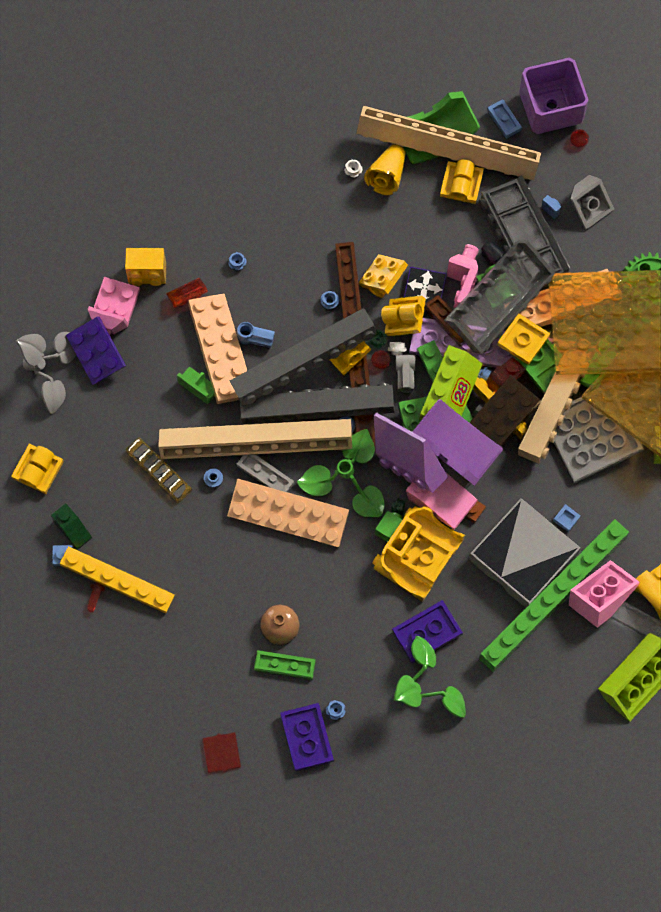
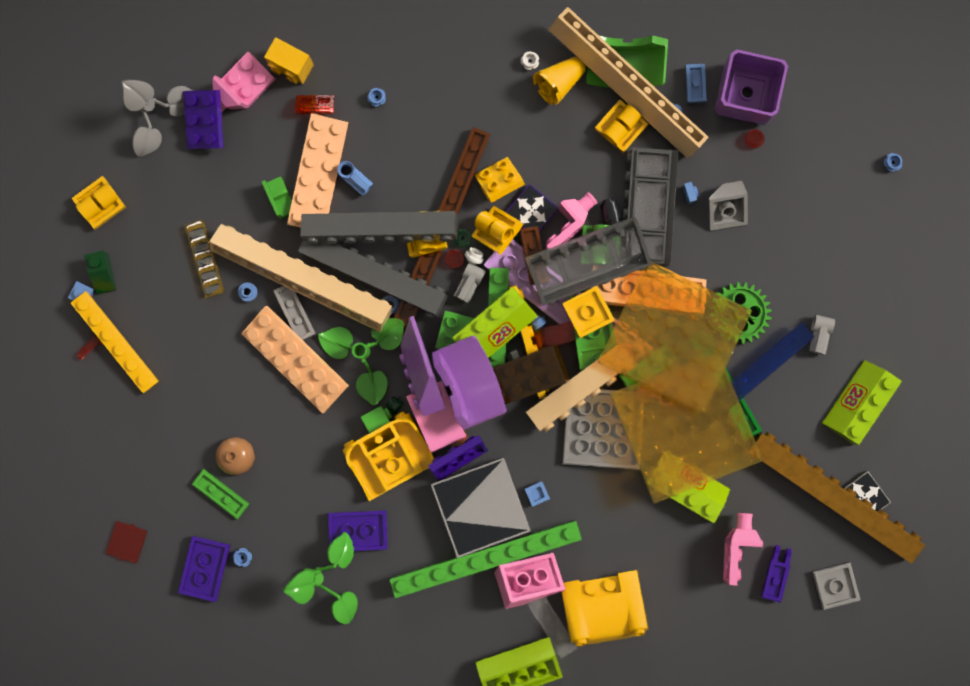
camera: 30 degrees right, 15 degrees up
(329, 295) = (437, 172): medium blue plate -> none
(481, 518) = (458, 457): none -> dark purple plate

